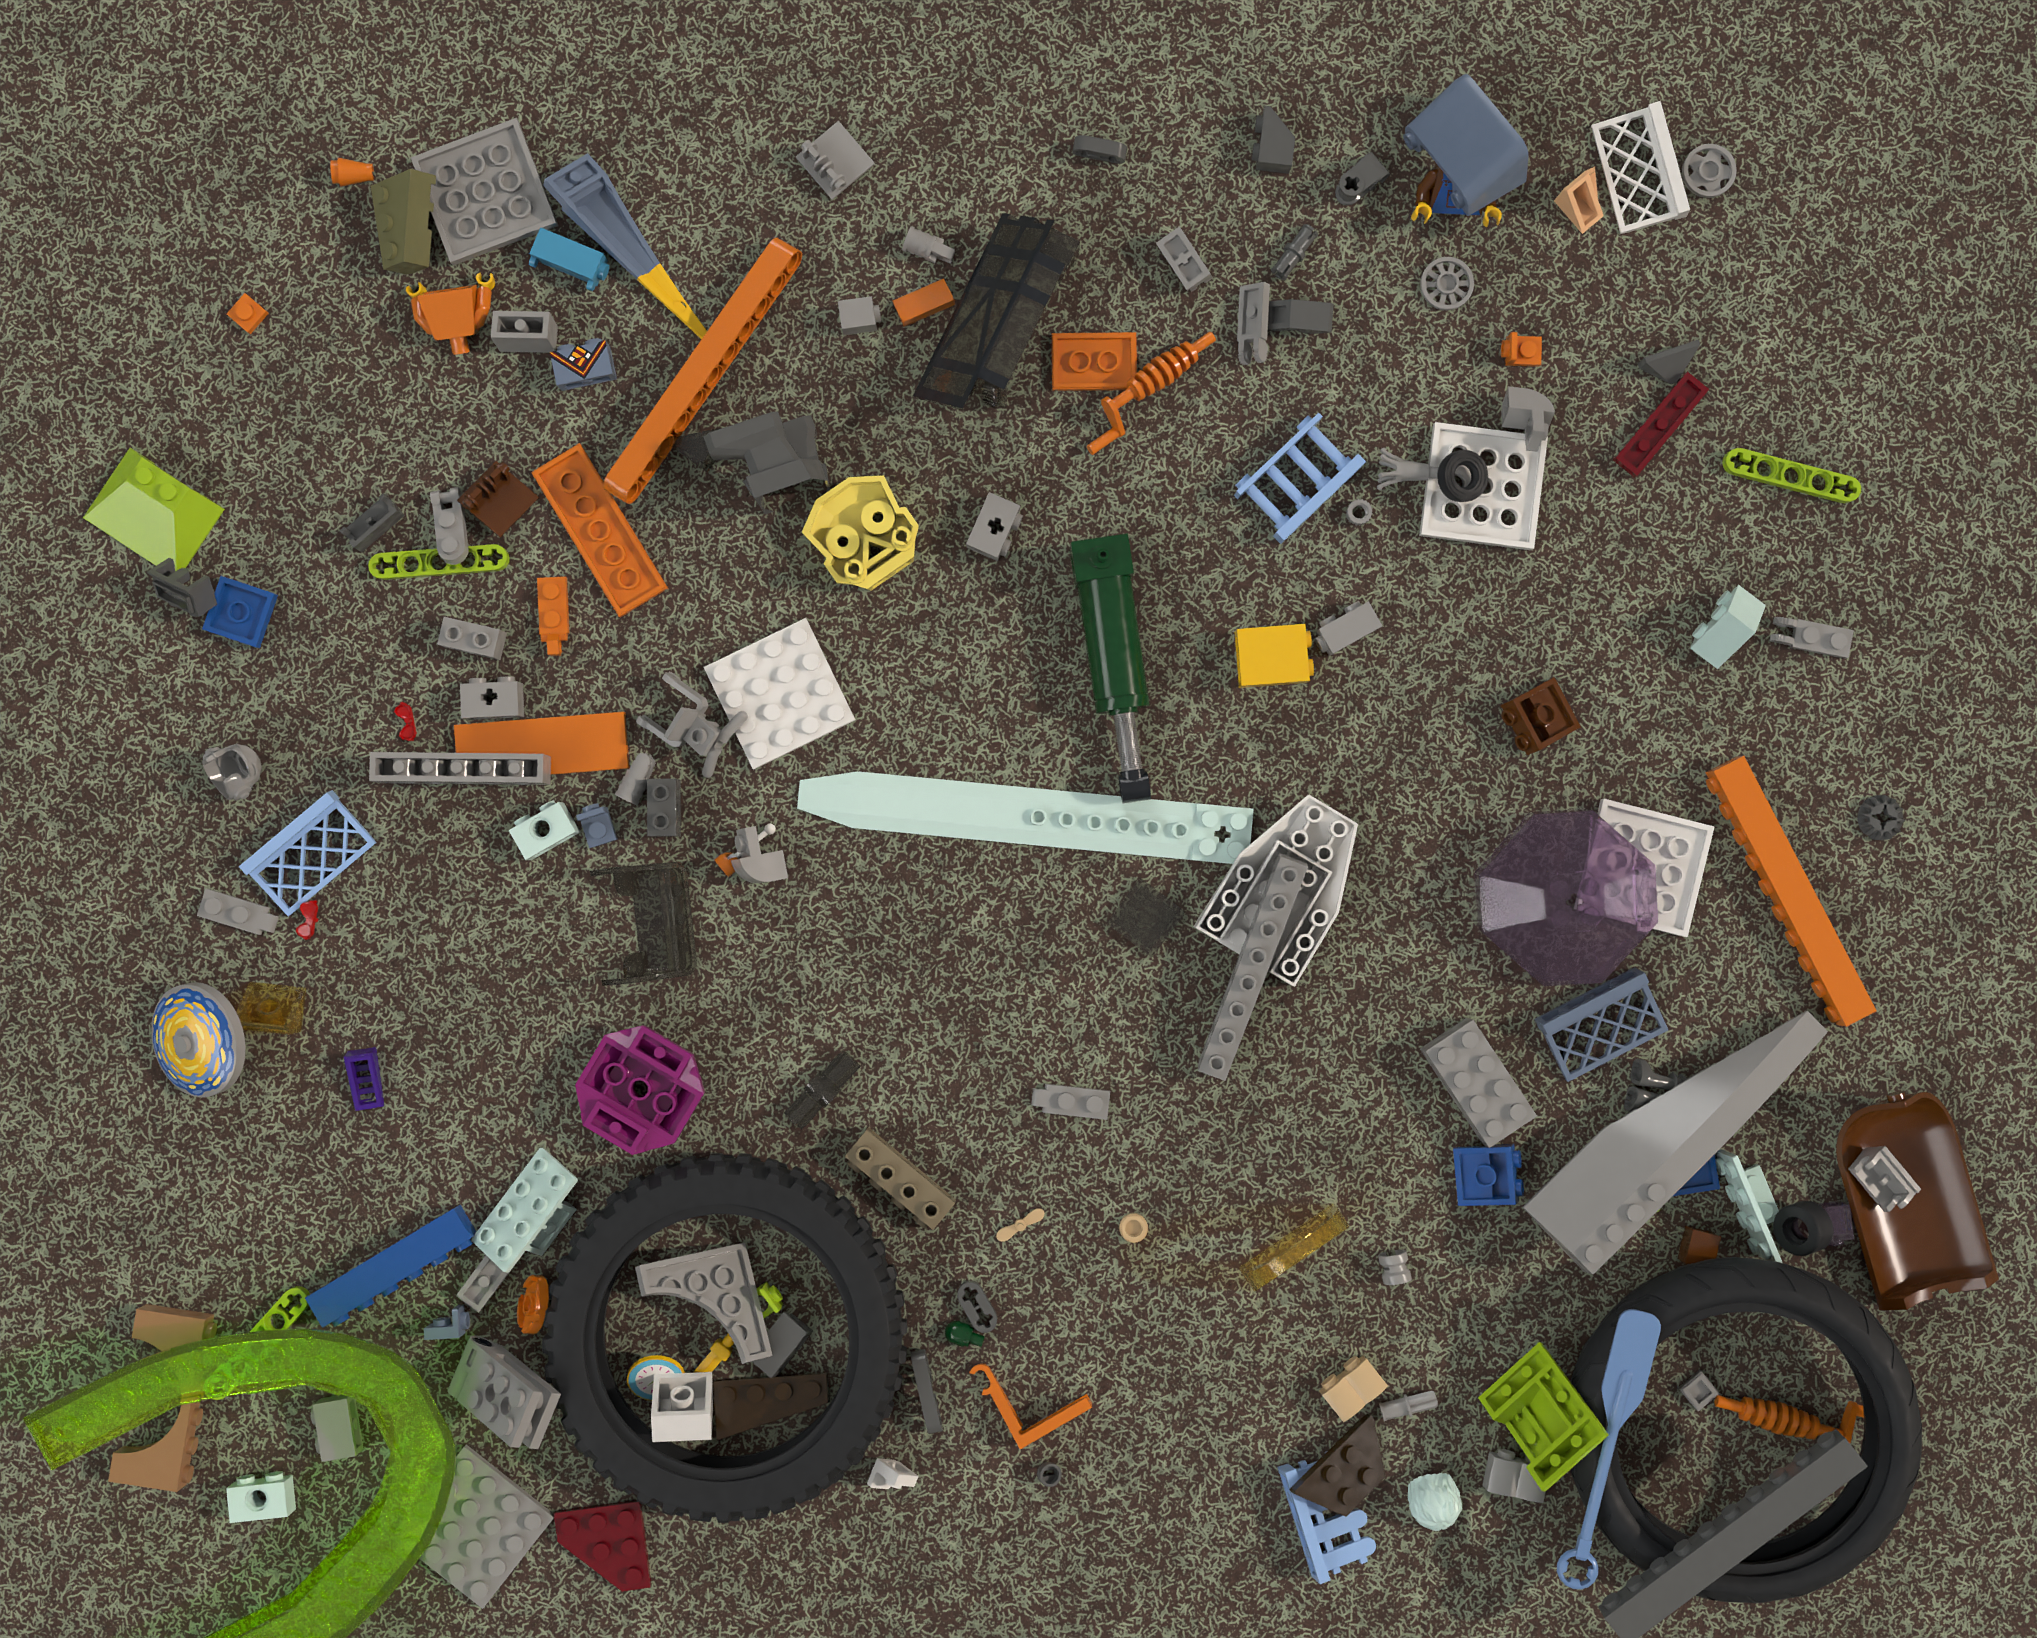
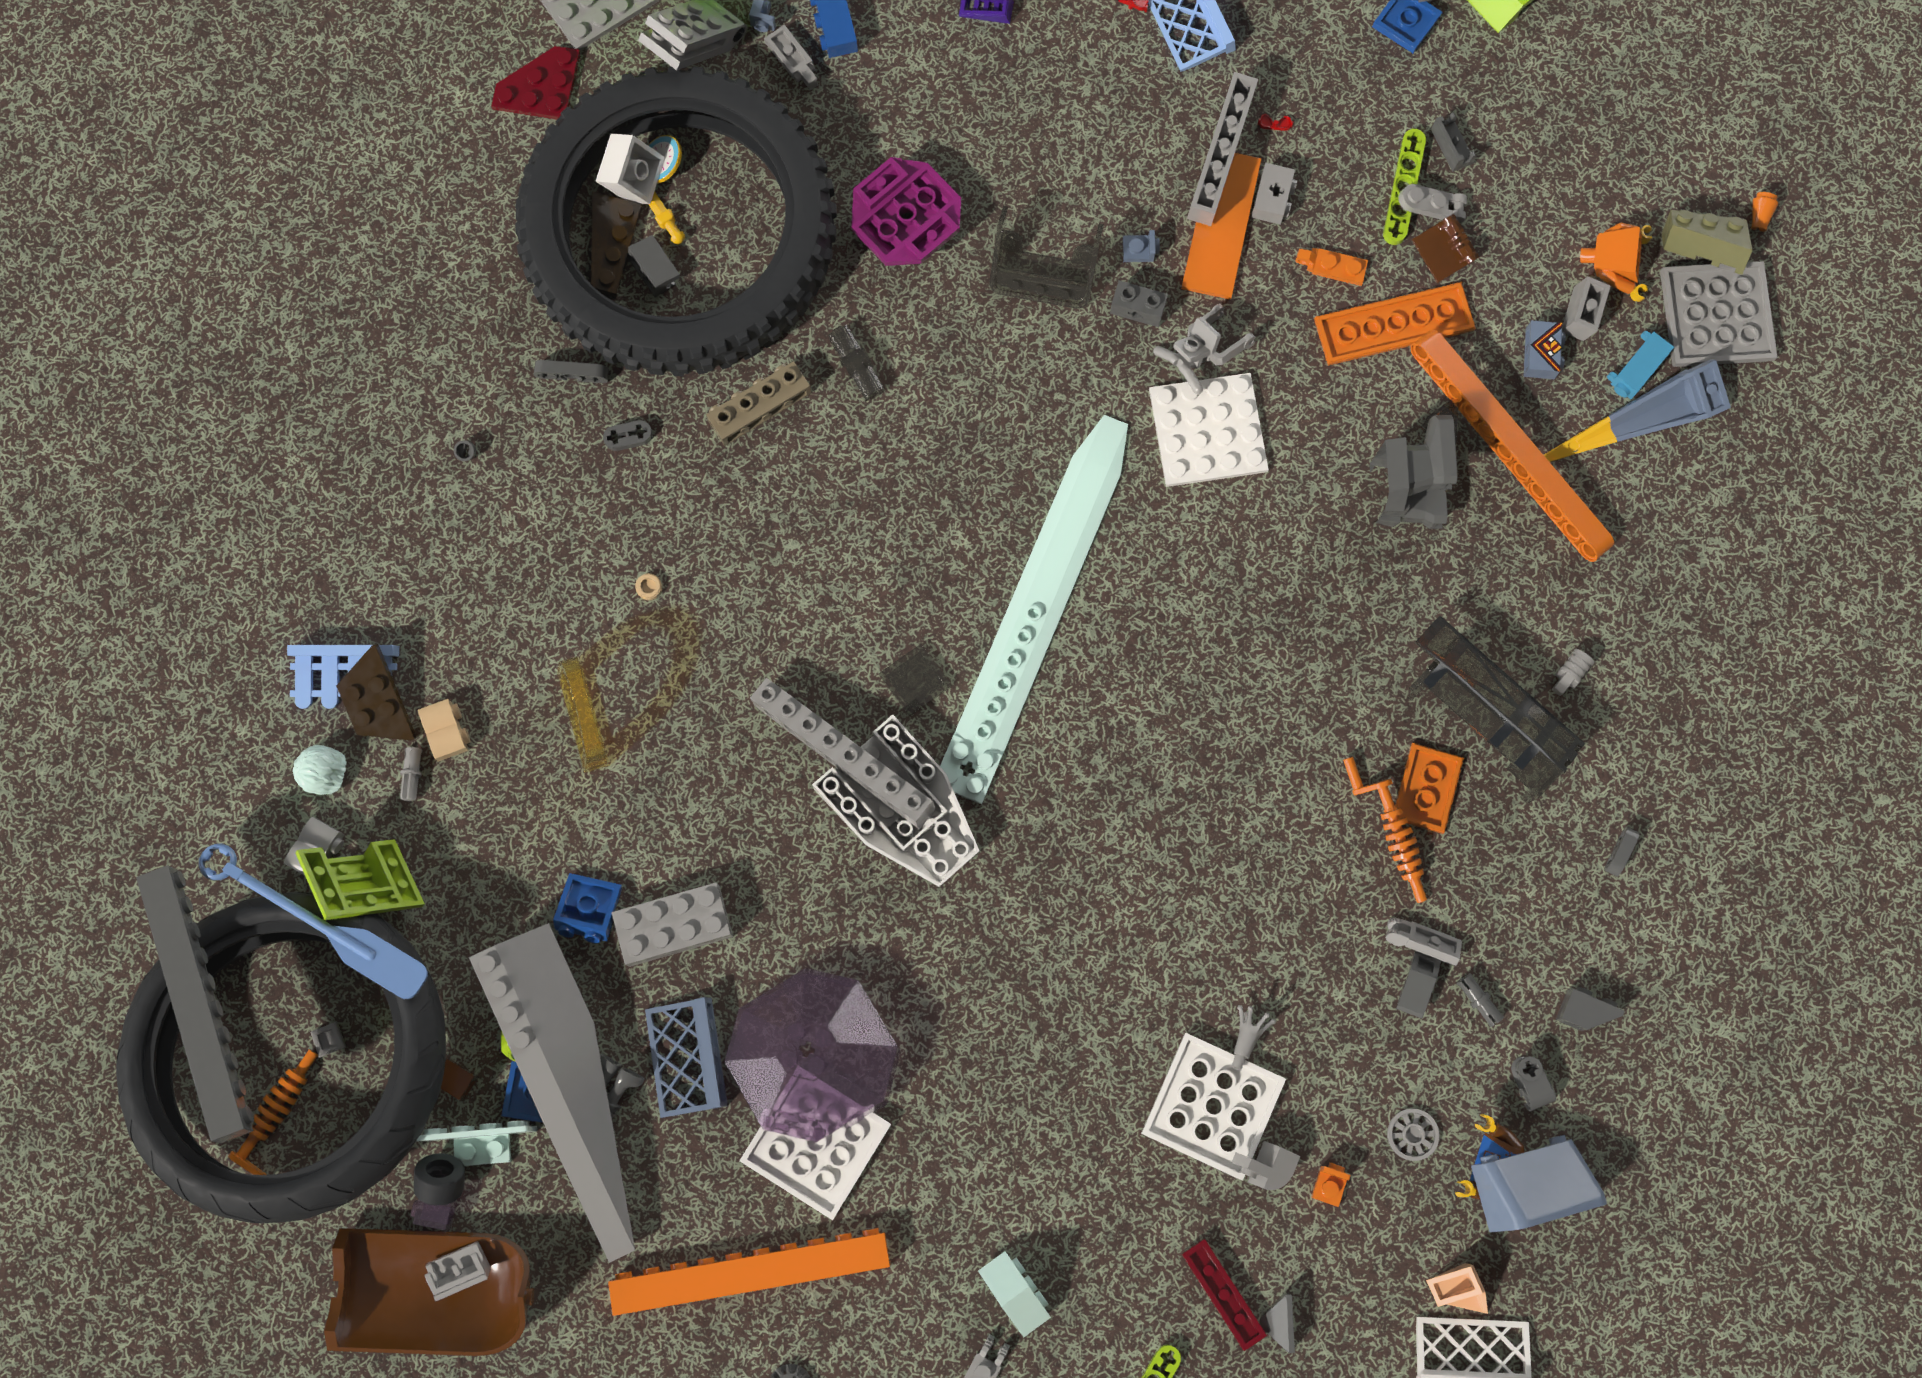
camera: 110 degrees right, 10 degrees down
(247, 313) = (1661, 96): orange plate -> none
(472, 638) = (1330, 192): light grey brick -> none
(526, 830) = (1149, 189): light aqua brick -> none
(528, 1213) = (831, 99): light aqua bracket -> none
(533, 1304) = (756, 78): orange tile -> none
(635, 779) = (1165, 283): light grey hinge -> none
(722, 1285) = (722, 228): light grey plate -> none
(724, 859) = (1075, 343): hinge -> none
(756, 866) = (1063, 364): light grey brick -> none
(772, 1296) = (696, 268): lime bracket -> none
(834, 160) = (1671, 616): light grey hinge -> none
(849, 514) = (1350, 532): light yellow brick -> none
(859, 315) = (1525, 593): light grey brick -> none
(891, 1473) = (512, 321): white bracket -> none
(923, 302) = (1521, 654): orange slope -> none
(962, 1335) = (608, 414): dark green cylinder -> none
(994, 510) = (1294, 641): light grey brick -> none
(1020, 1224) = (684, 492): tan piece -> none
(1039, 1429) = (524, 434): orange hinge -> none
(1072, 1101) = (775, 568): light grey hinge -> none
(1104, 584) = (1229, 731): dark green piece -> none
(1184, 259) = (1499, 895): light grey hinge -> none
(1273, 655) = (1114, 863): yellow brick -> none
(1304, 504) = (1255, 959): light blue fence -> none
(1347, 629) = (1118, 937): light grey brick -> none
(1367, 508) = (1228, 977): light grey axle -> none
(1394, 1268) = (532, 799): light grey wheel -> none
(1447, 480) = (1224, 1100): black tyre -> none
(1539, 717) = (984, 1089): reddish brown plate -> none

